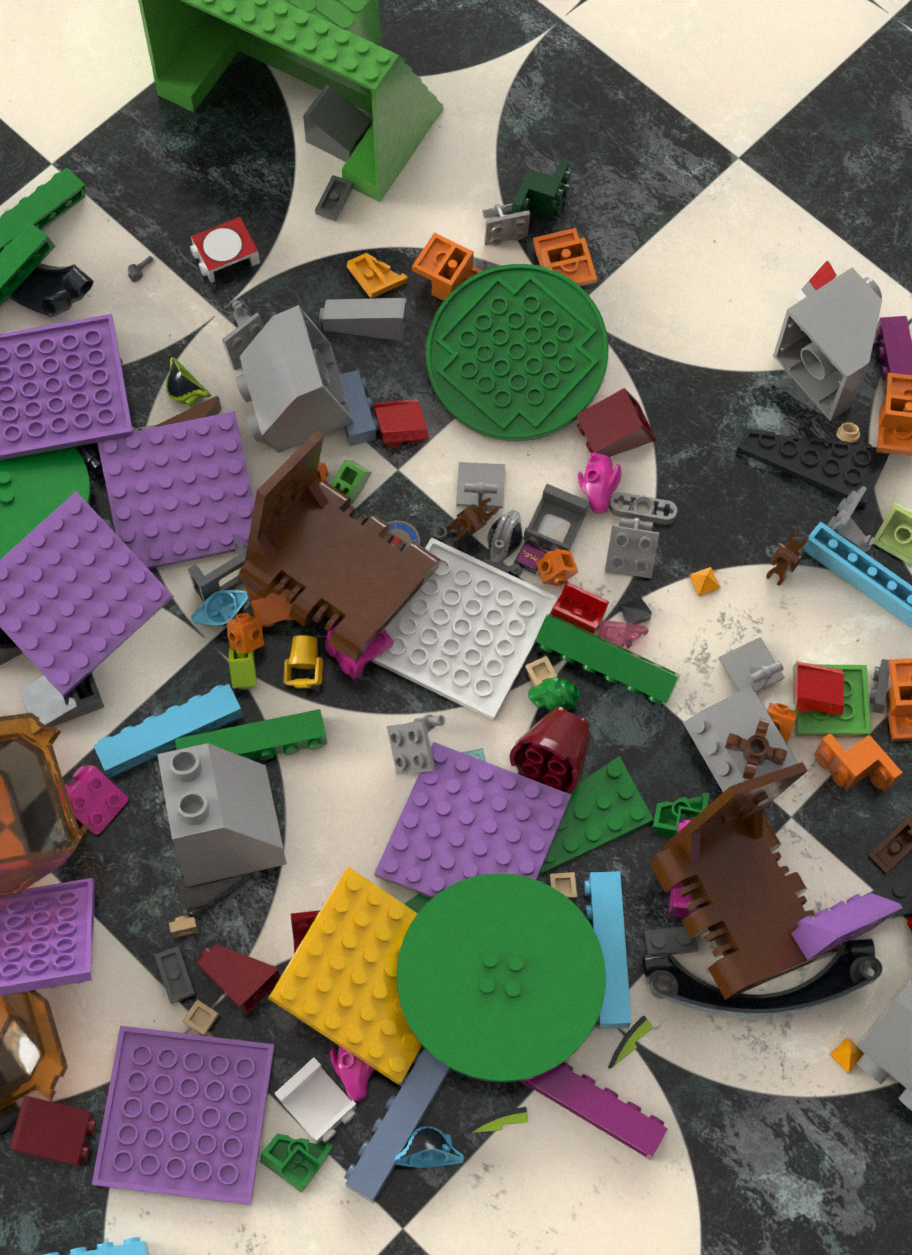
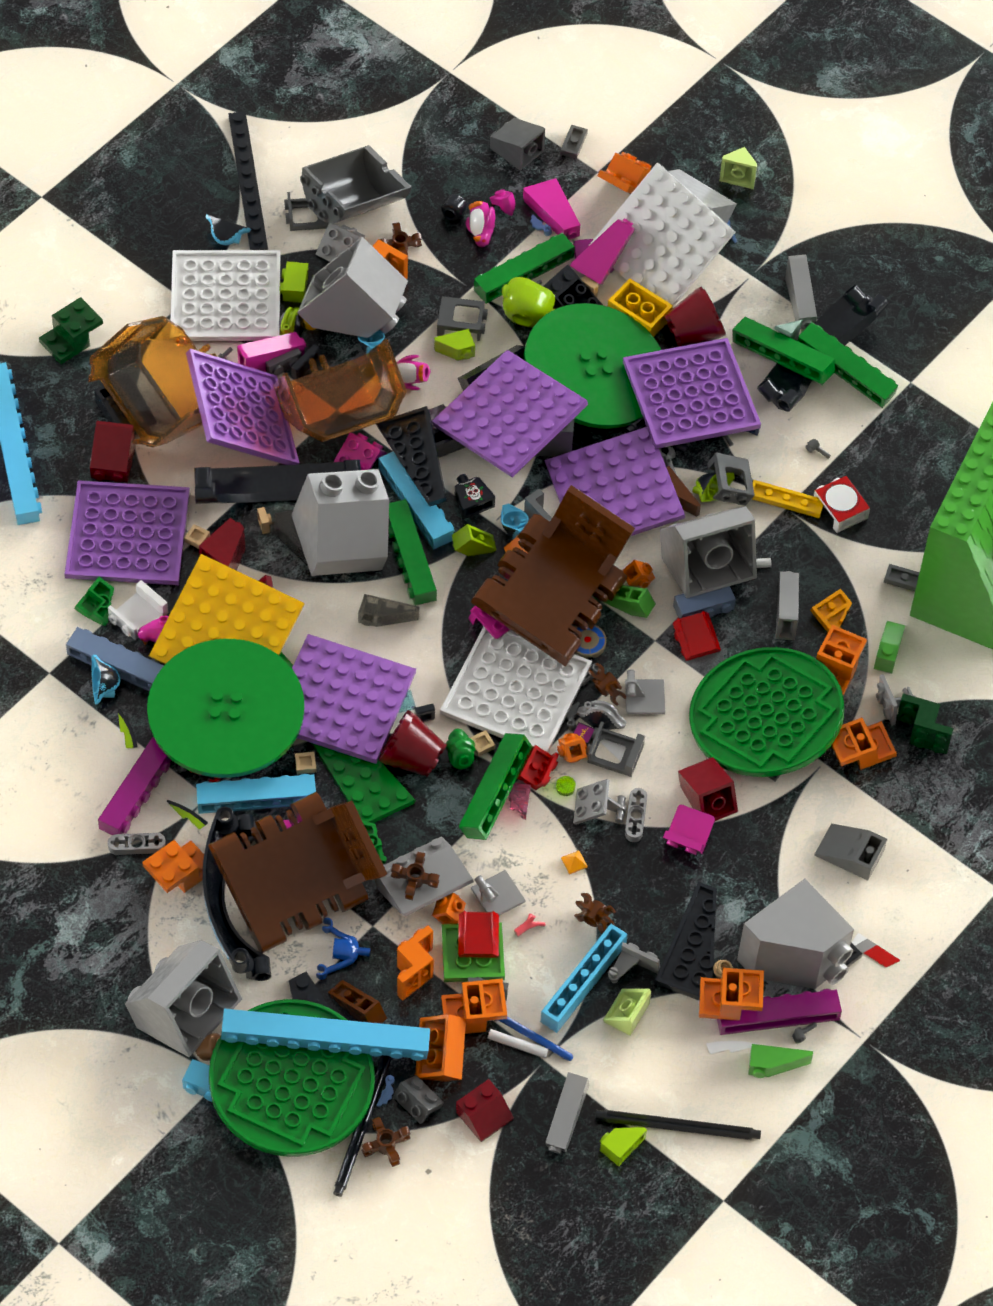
camera: 85 degrees right, 10 degrees down
(104, 718) = (415, 446): none -> black wing
(122, 937) = (259, 482): none -> black panel
(163, 362) = (725, 463): none -> dark grey window
(170, 661) = (472, 496): none -> black torso
(174, 974) = (236, 512): dark grey plate -> none
(210, 308) = (787, 499): none -> yellow plate
(243, 335) = (763, 521): light grey plate -> none
(245, 633) = (495, 536): orange brick -> none
(303, 656) = (478, 578): yellow piece -> none
(340, 786) = (382, 612): none -> clear smoke slope
(411, 744) = (417, 648): light grey plate -> none
(425, 221) = (889, 647): none -> bright green slope
(496, 736) = (426, 712): none -> black tile
(599, 481) = (652, 777): dark pink animal -> none
(600, 582) = (565, 786): none -> clear neon green tile
(636, 611) = (541, 811): black slope -> none
(672, 450) = (689, 829): none -> dark pink bracket
(683, 1088) = (123, 850): none -> light grey beam
(697, 286) = (852, 849): none -> dark grey slope
(721, 1050) = (176, 866): none -> orange bracket
(791, 637) = (527, 925): none -> coral bar
(830, 852) = (345, 948): none -> blue piece
(842, 923) = (276, 941): medium lavender slope -> none

